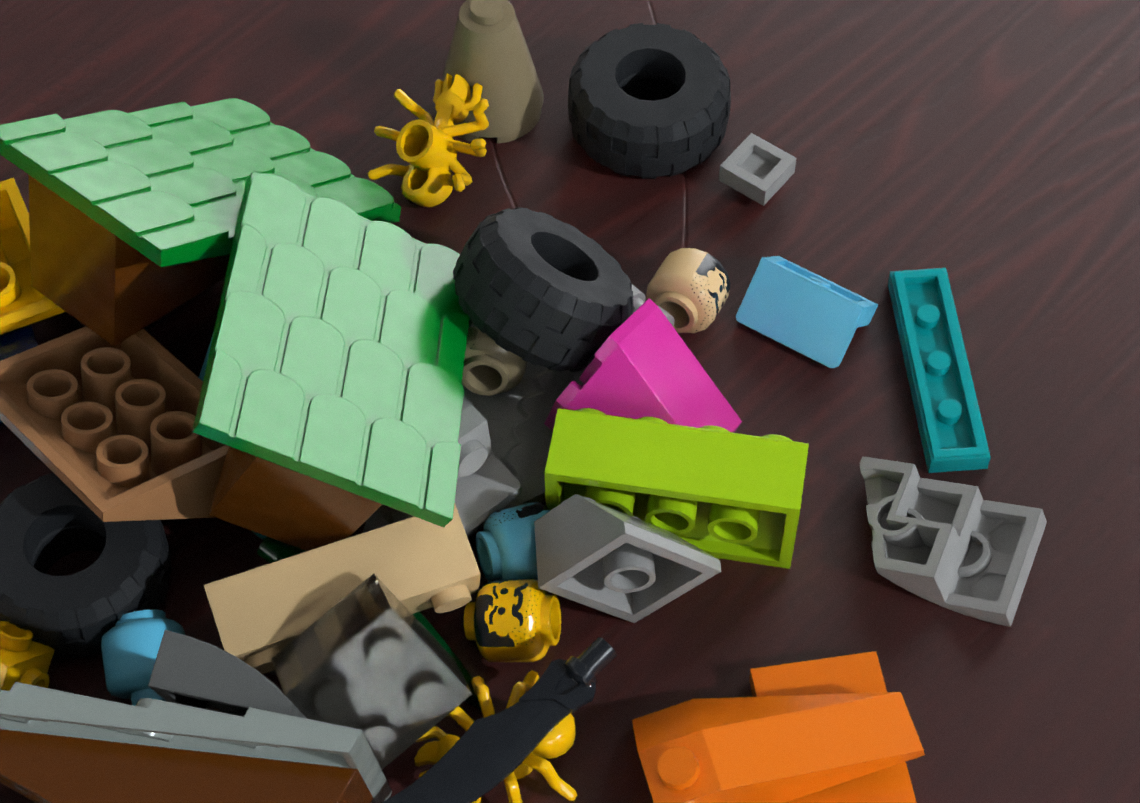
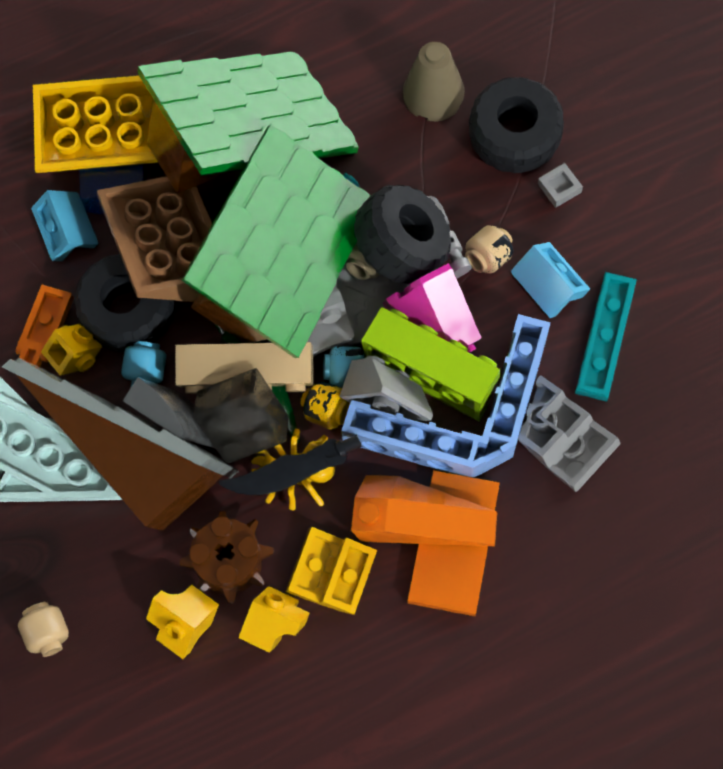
camera: 25 degrees right, 15 degrees up
(430, 143) = (385, 120): yellow animal -> none
(761, 619) = (452, 451): none -> light blue brick

